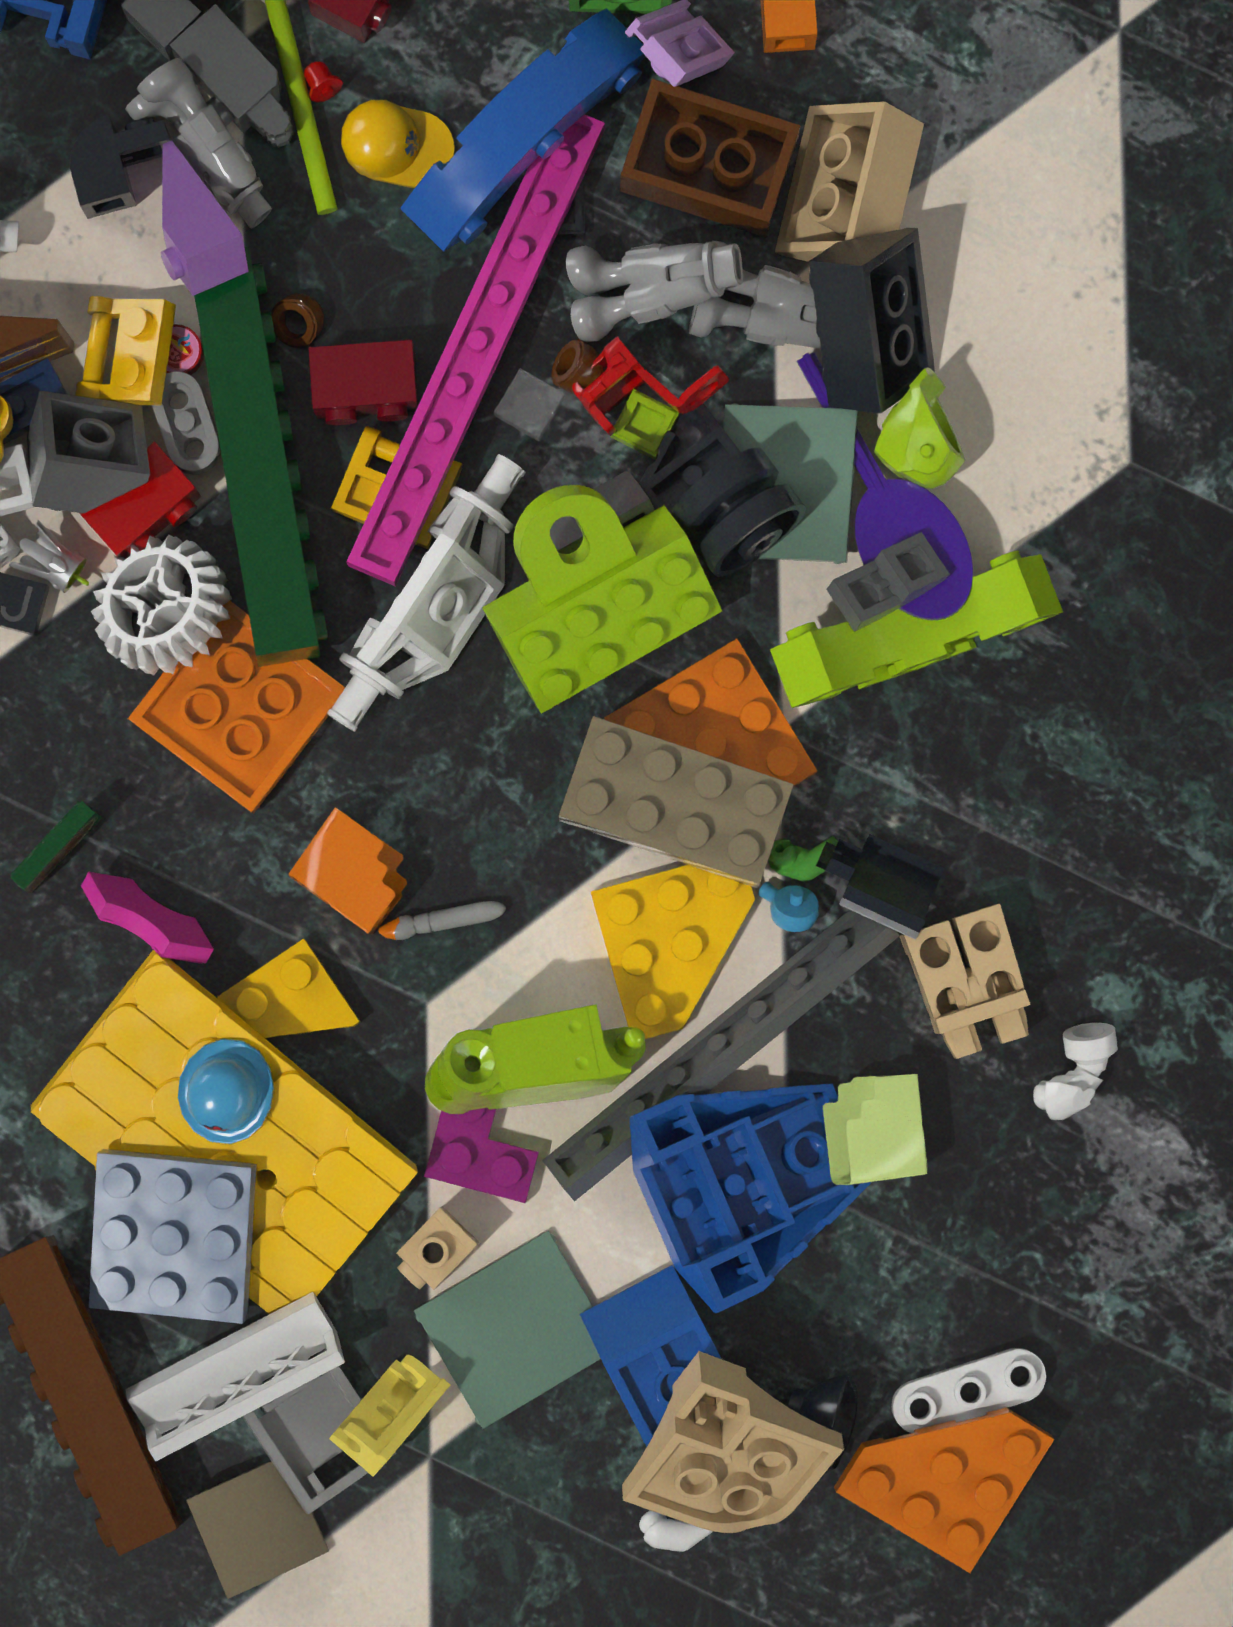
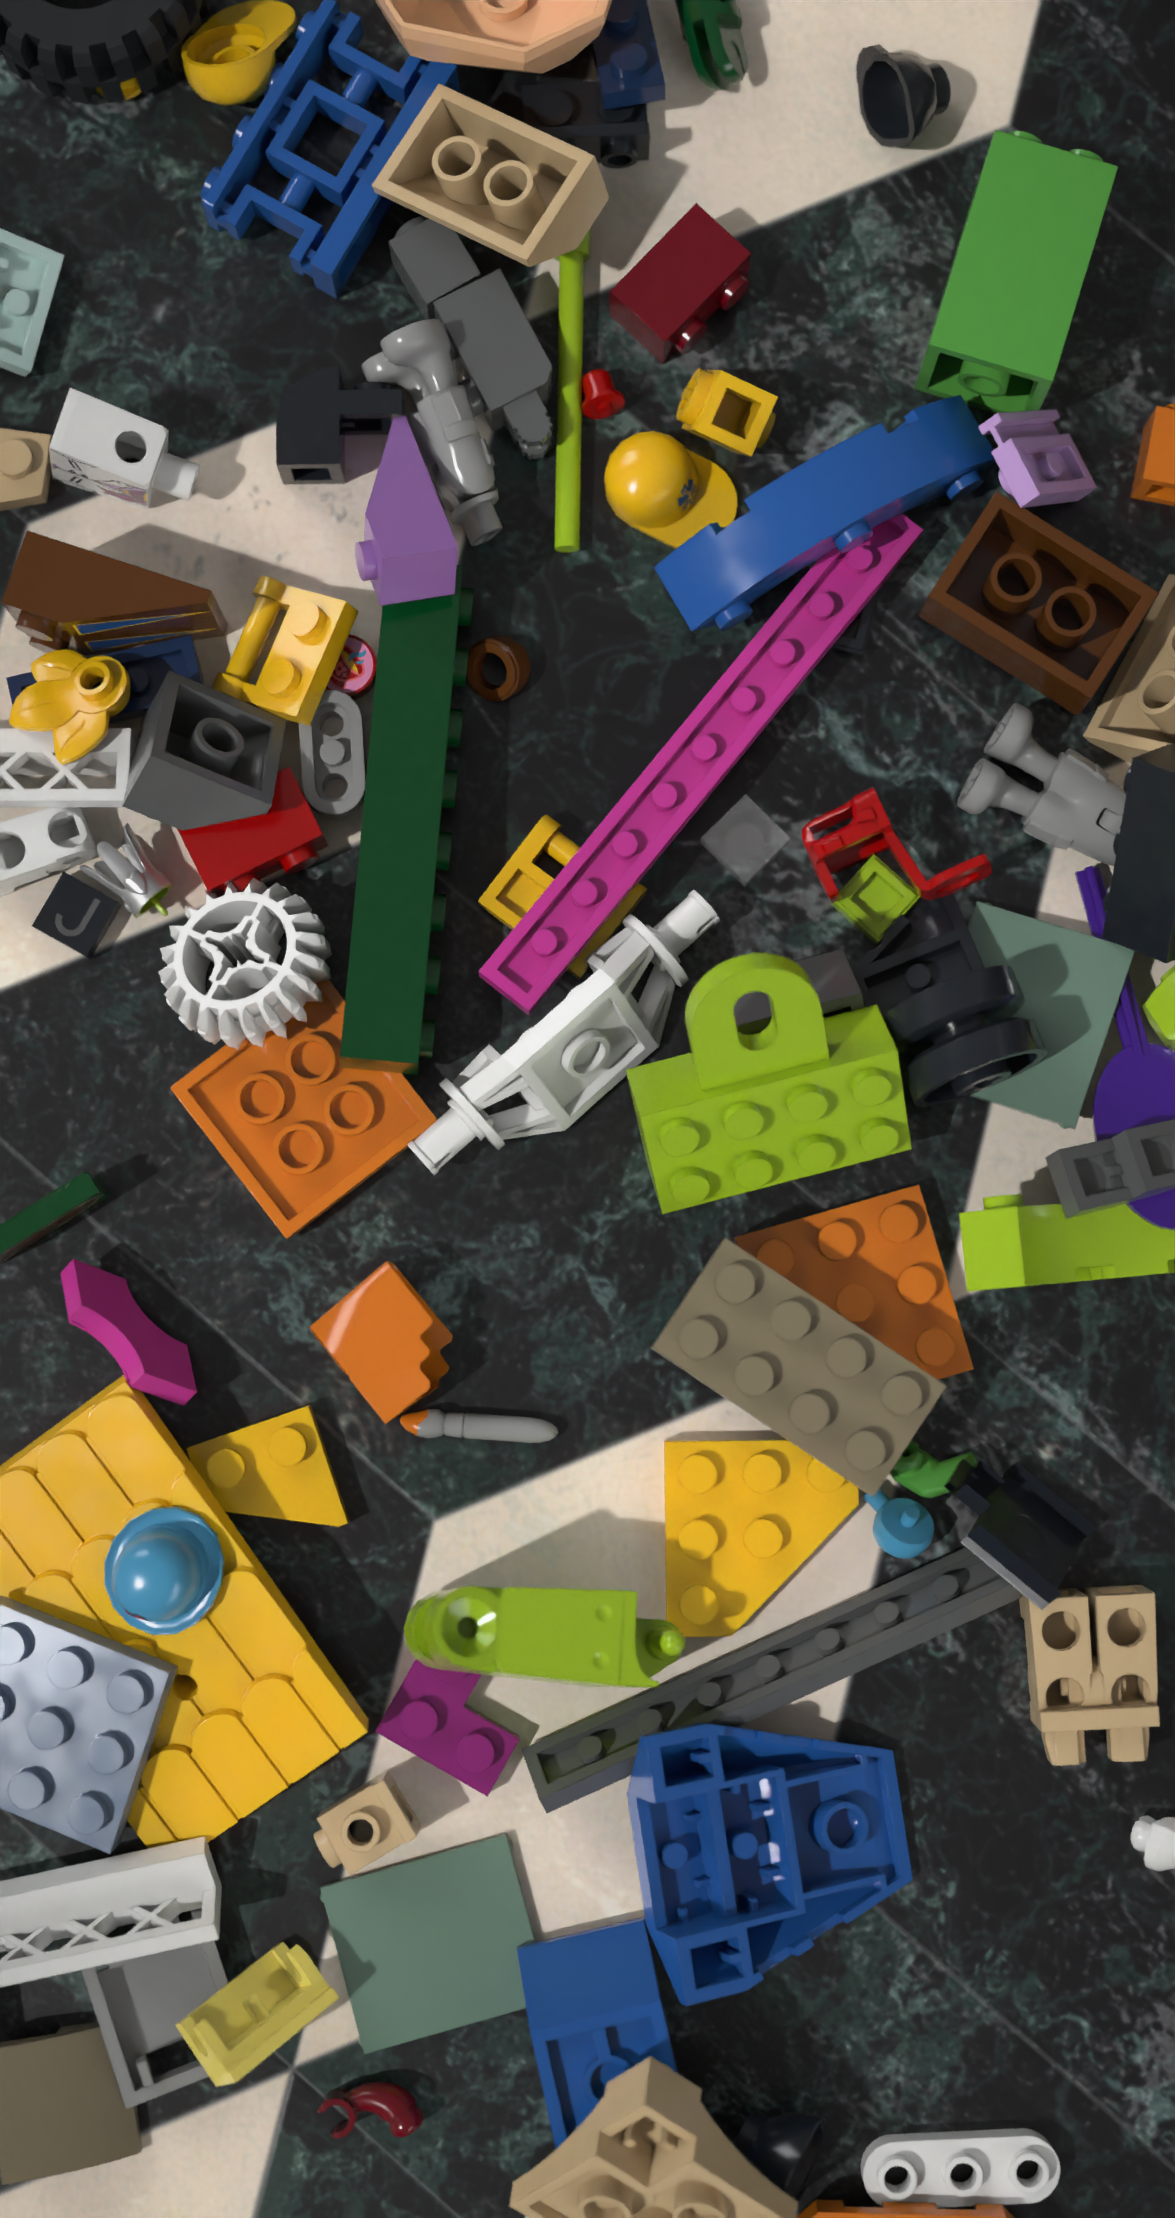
camera: 15 degrees right, 0 degrees up
(364, 381) = (556, 760): dark red brick -> none
(424, 69) = (727, 411): none -> yellow brick
(506, 1458) = (384, 2099): none -> dark red arm
(574, 365) = (811, 808): reddish brown piece -> none
(659, 280) = (940, 736): light grey piece -> none
(875, 1130) = (932, 1826): yellowish green piece -> none

